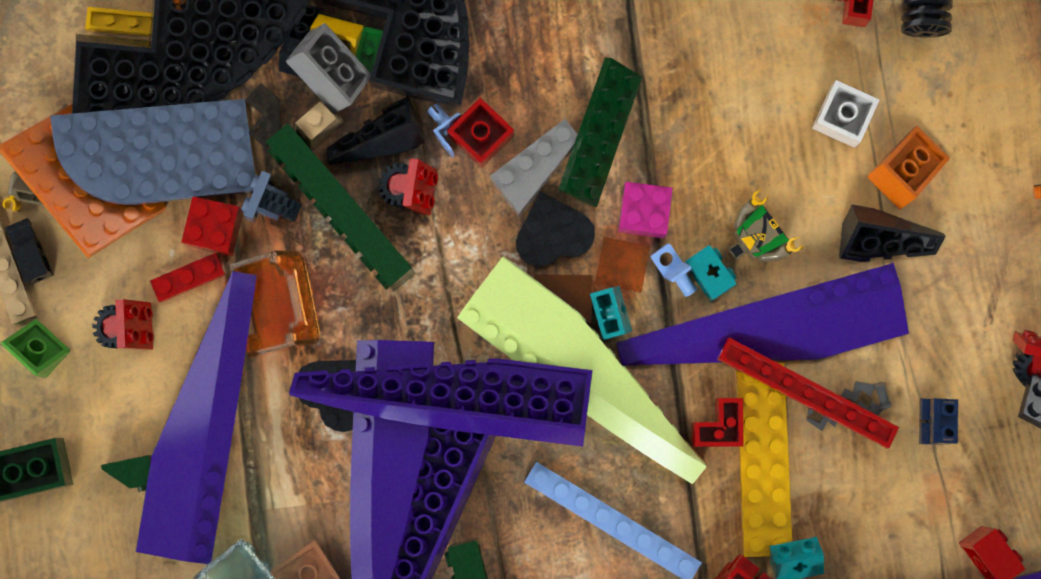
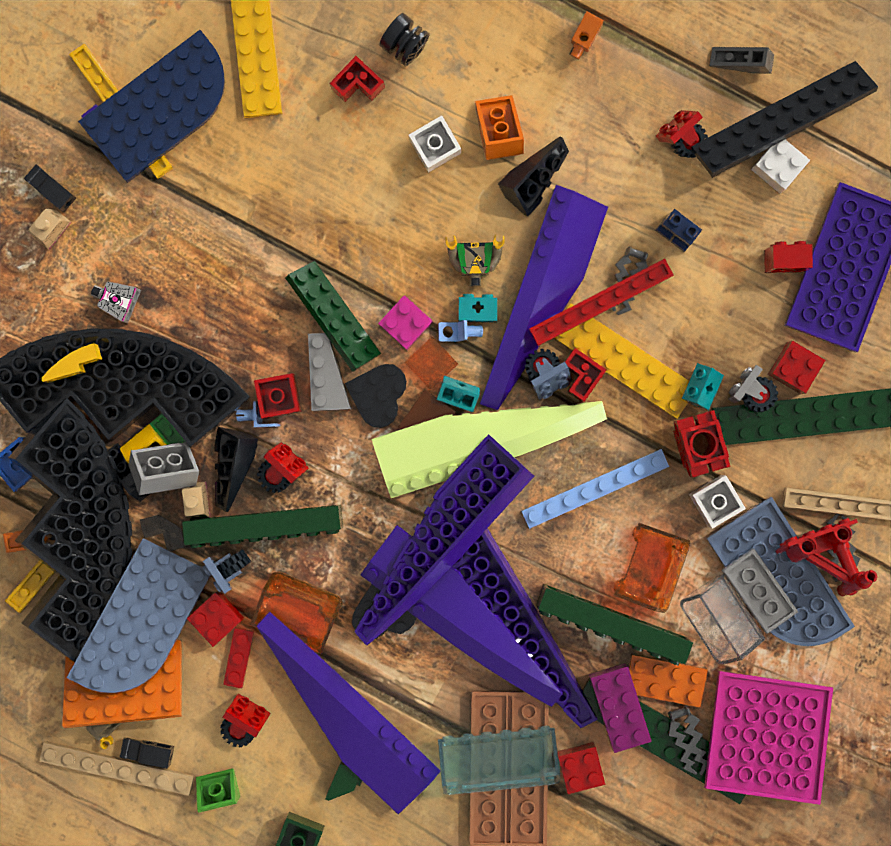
camera: 50 degrees left, 5 degrees up
(695, 389) = (547, 373): none -> sand blue plate

